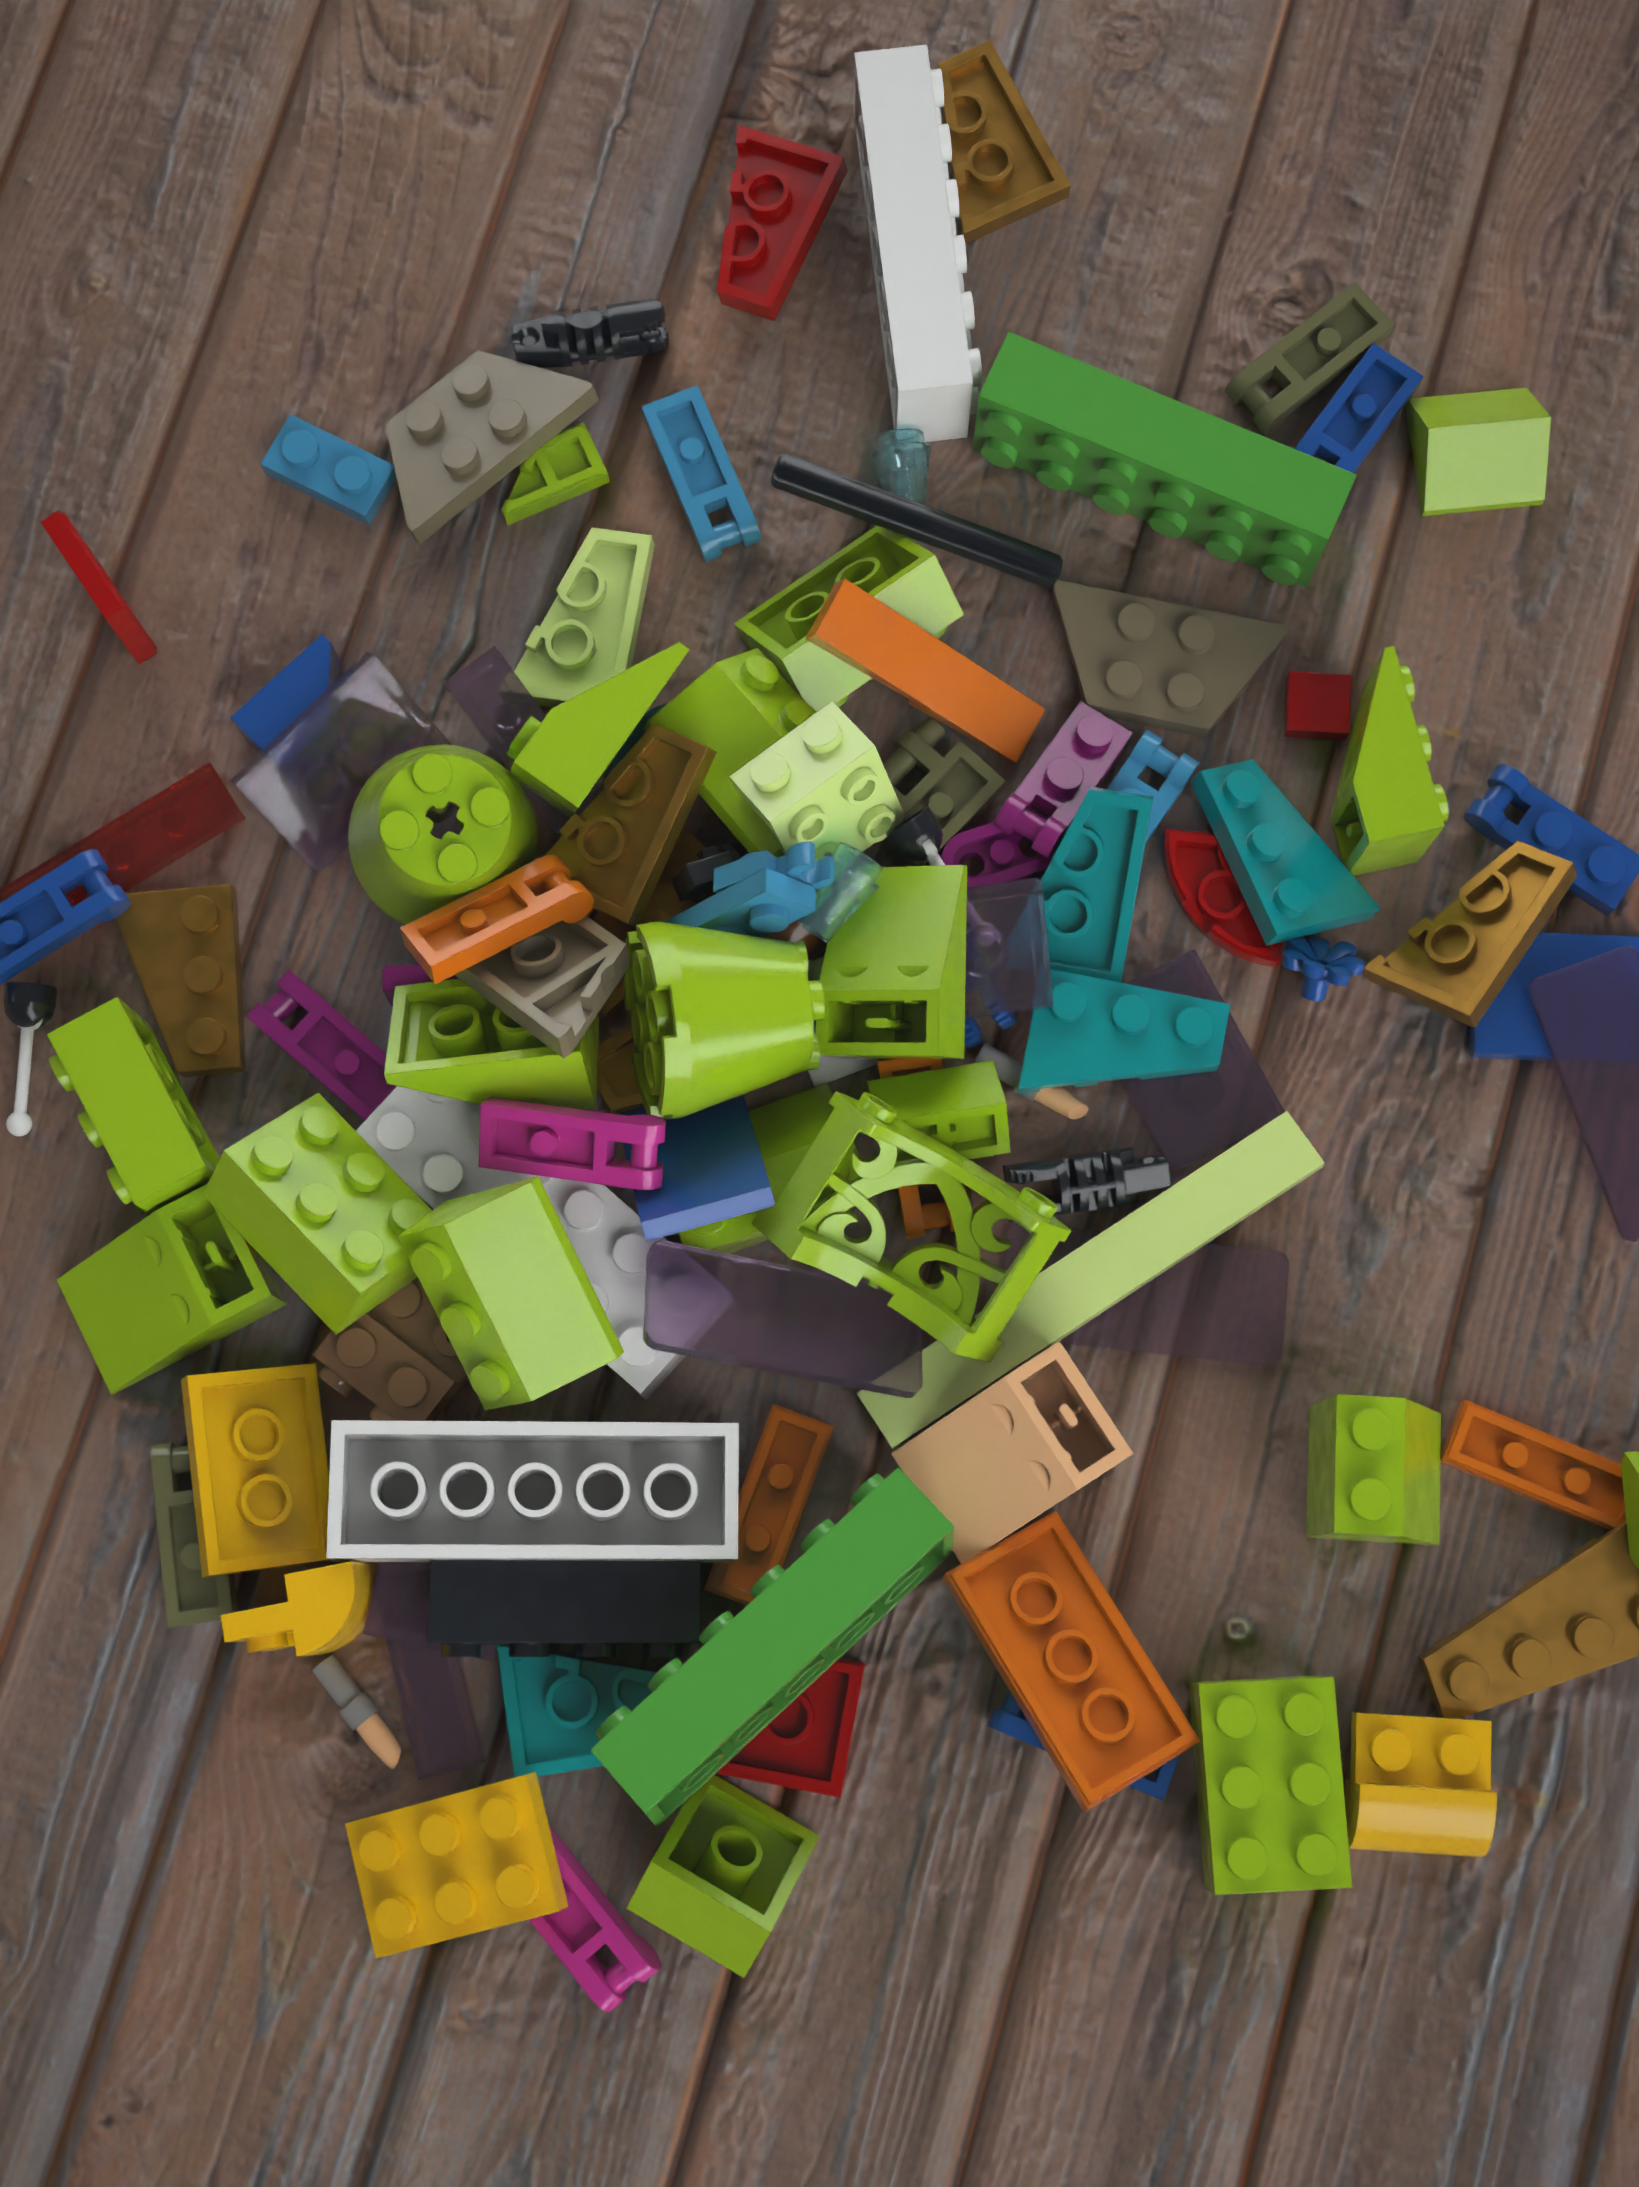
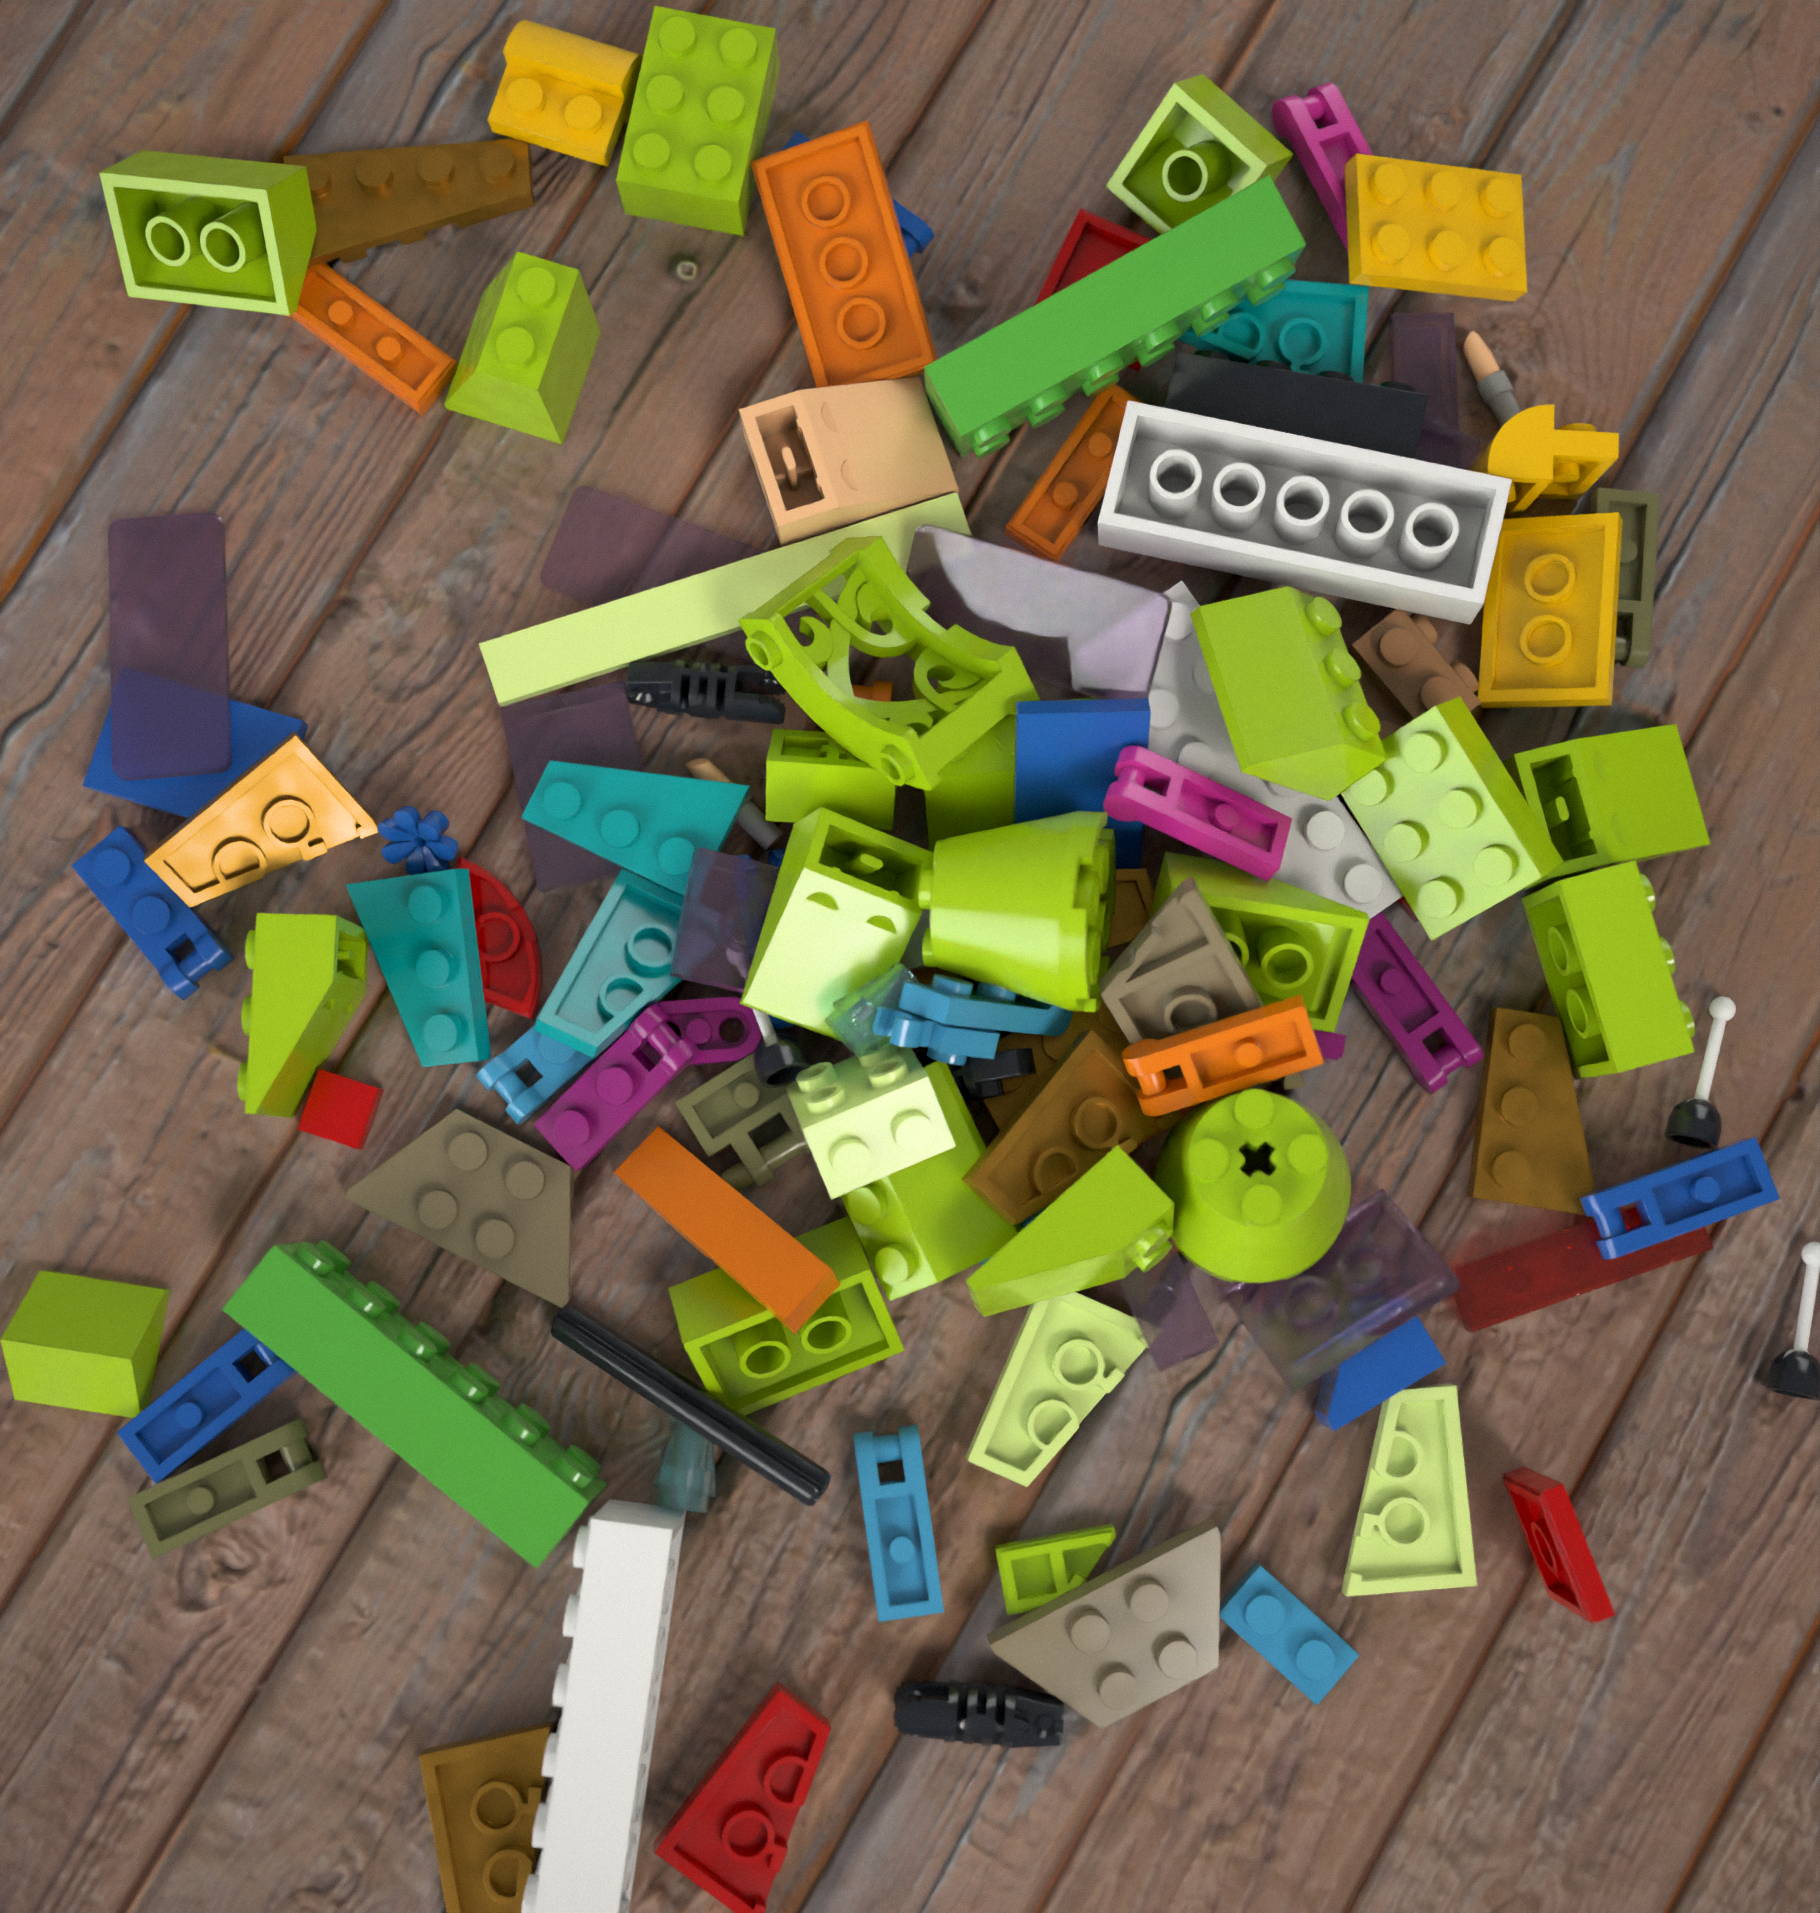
camera: 170 degrees left, 5 degrees up
(235, 602) = (1414, 1500): none -> yellowish green wing

